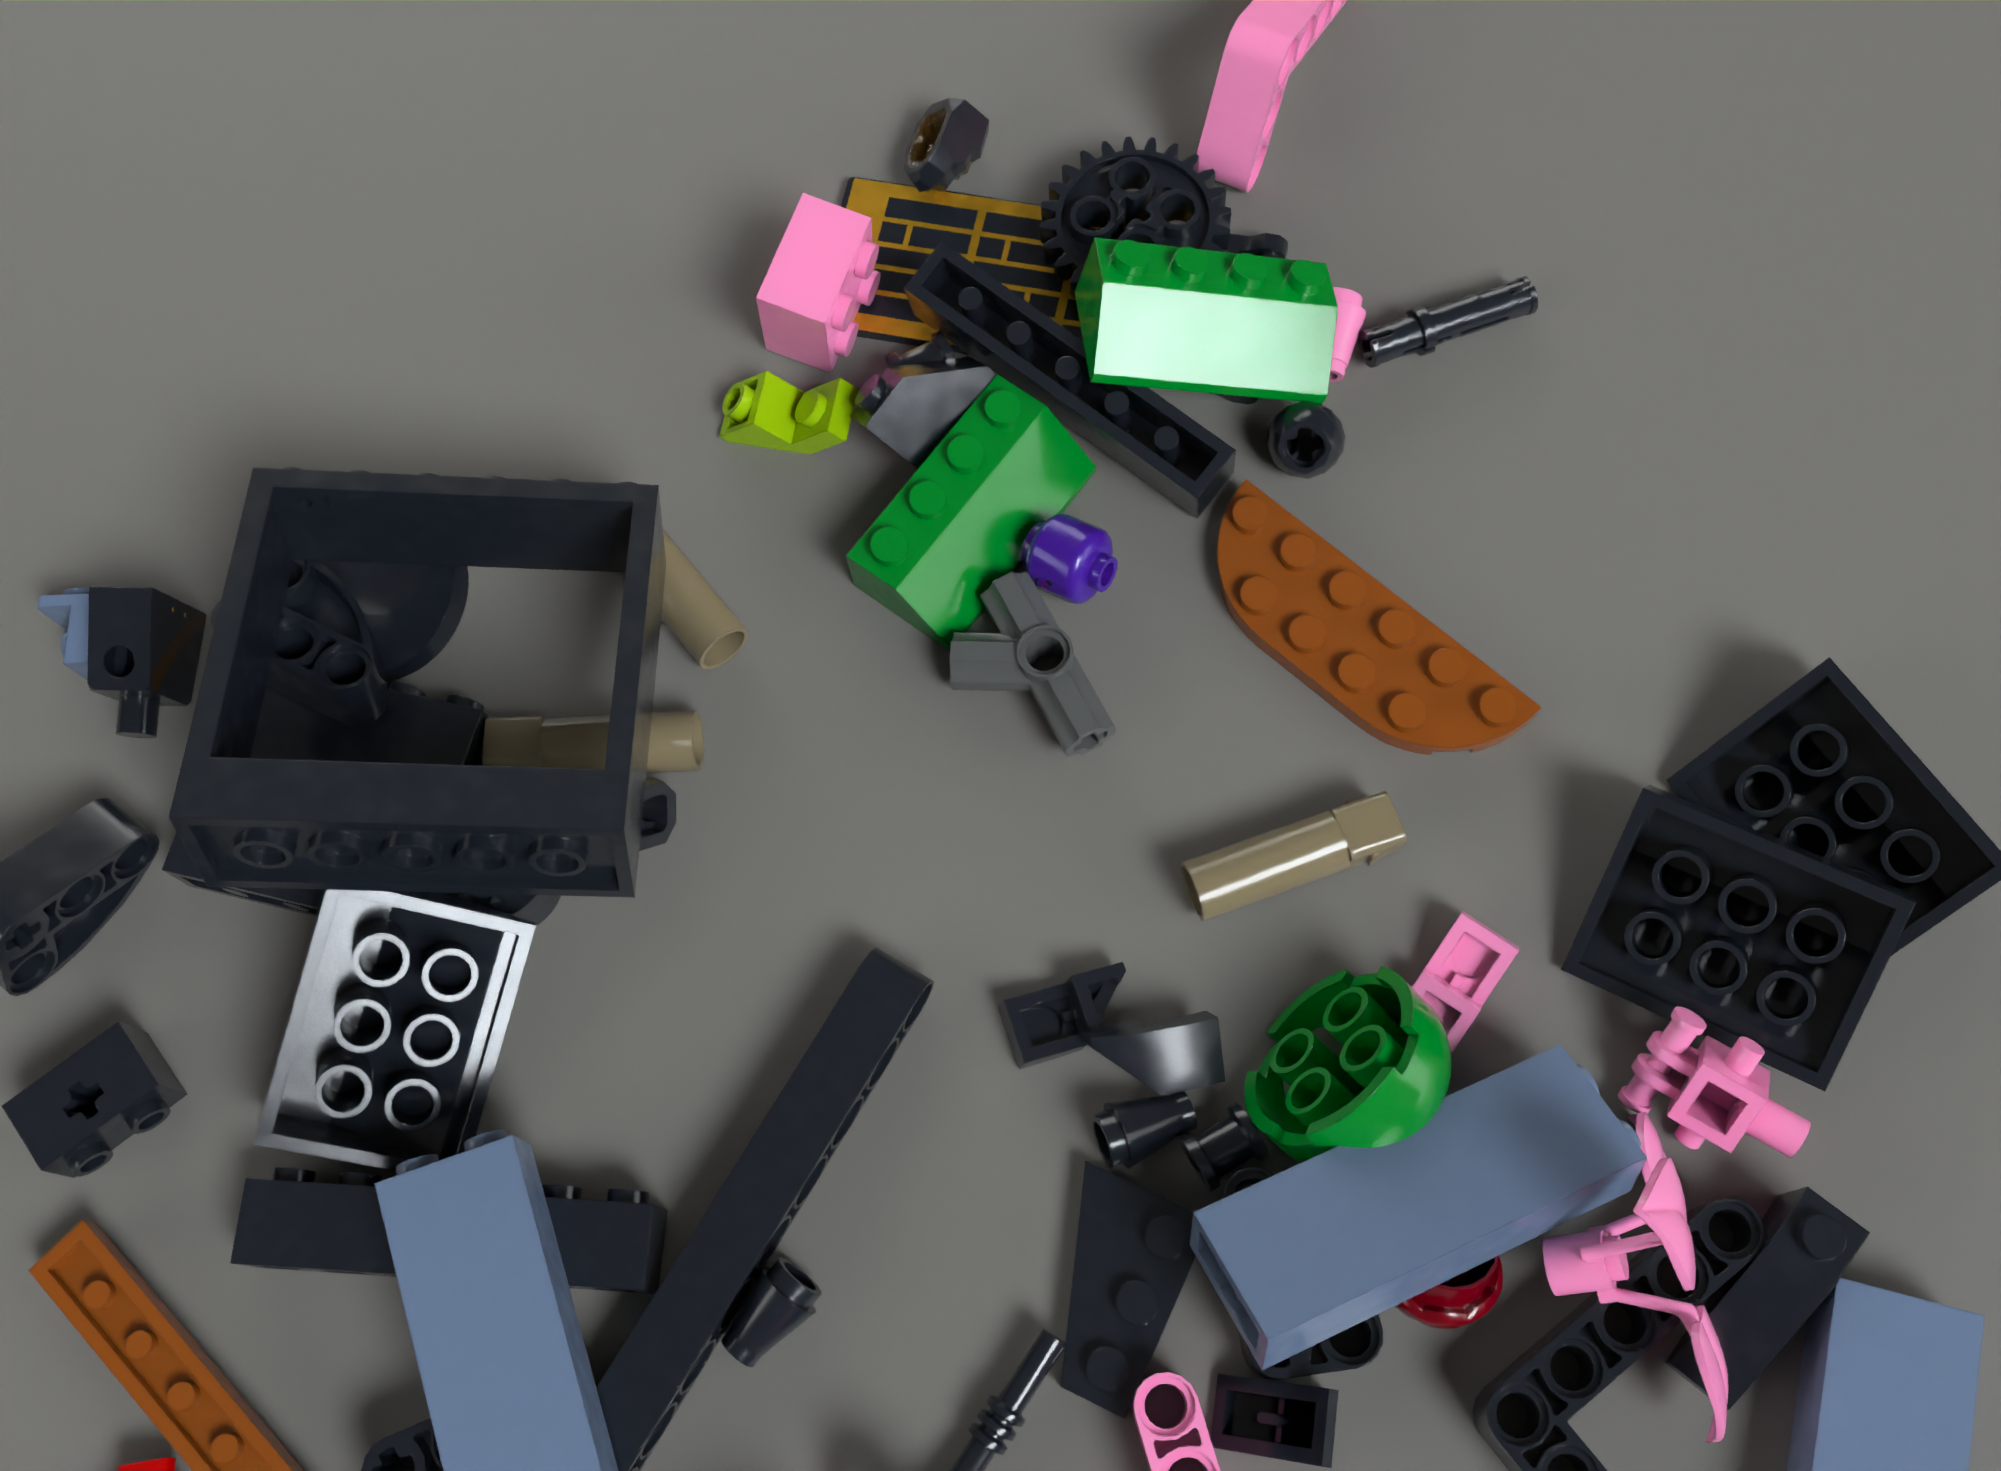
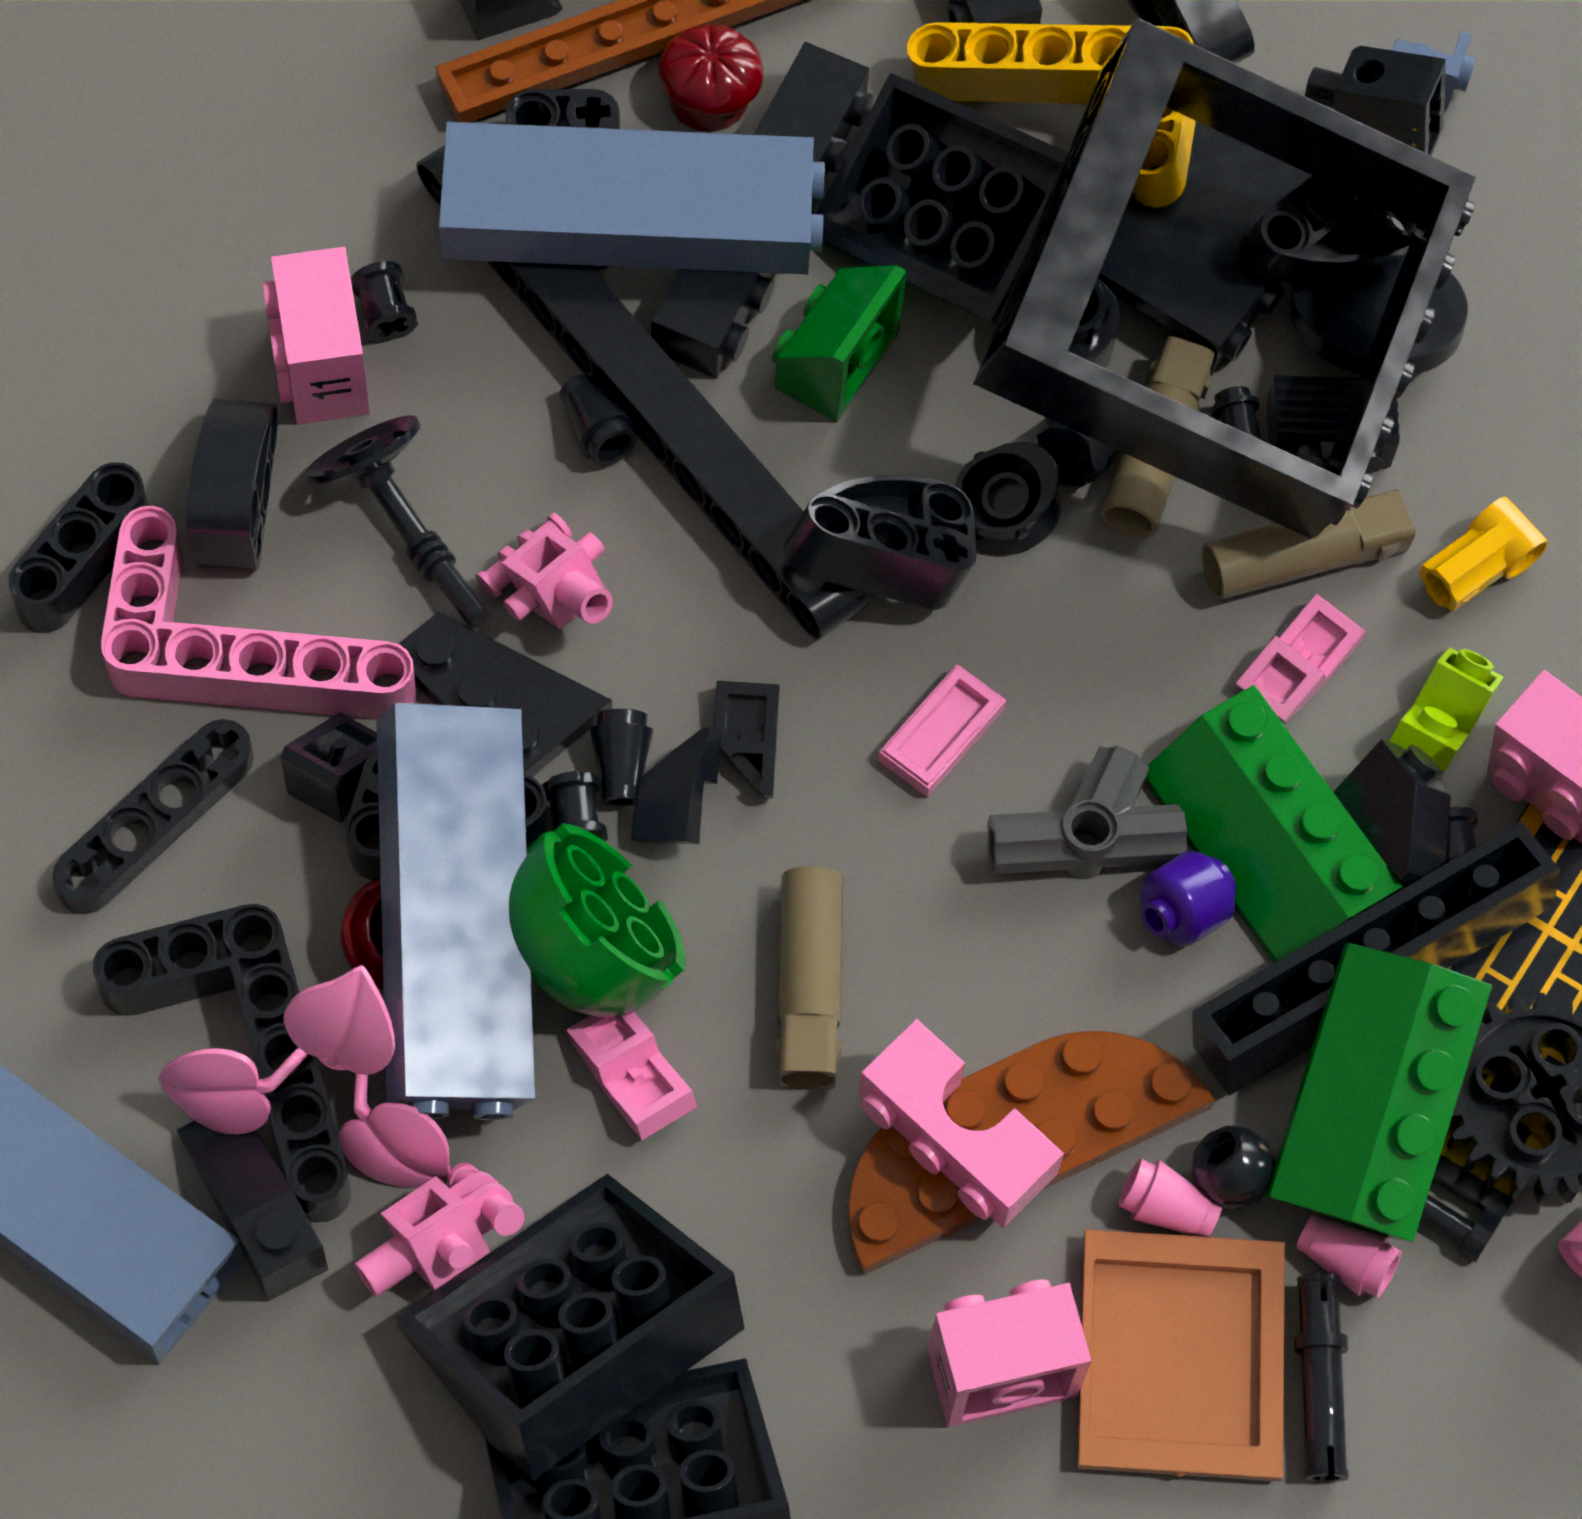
camera: 100 degrees right, 5 degrees down
(173, 1015) = (1026, 75): none -> yellow beam
(295, 1360) = (710, 76): none -> dark red piece
(528, 613) = (1308, 414): none -> black brick
(555, 678) = (1237, 409): none -> black pin
(588, 1086) = (840, 338): none -> green slope
(608, 421) = (1494, 546): none -> yellow piece
(711, 864) = (1012, 496): none -> black piece
(782, 552) = (1303, 657): none -> bright pink slope
(816, 940) = (888, 538): none -> black beam
(979, 1277) = (550, 576): none -> bright pink piece
(981, 837) = (942, 730): none -> bright pink tile
(1356, 488) = (1167, 1200): none -> bright pink cone
(1376, 708) = (993, 1167): none -> bright pink arch
(1482, 436) = (1182, 1355): none -> nougat piece
(1577, 545) = (1008, 1352): none -> bright pink brick

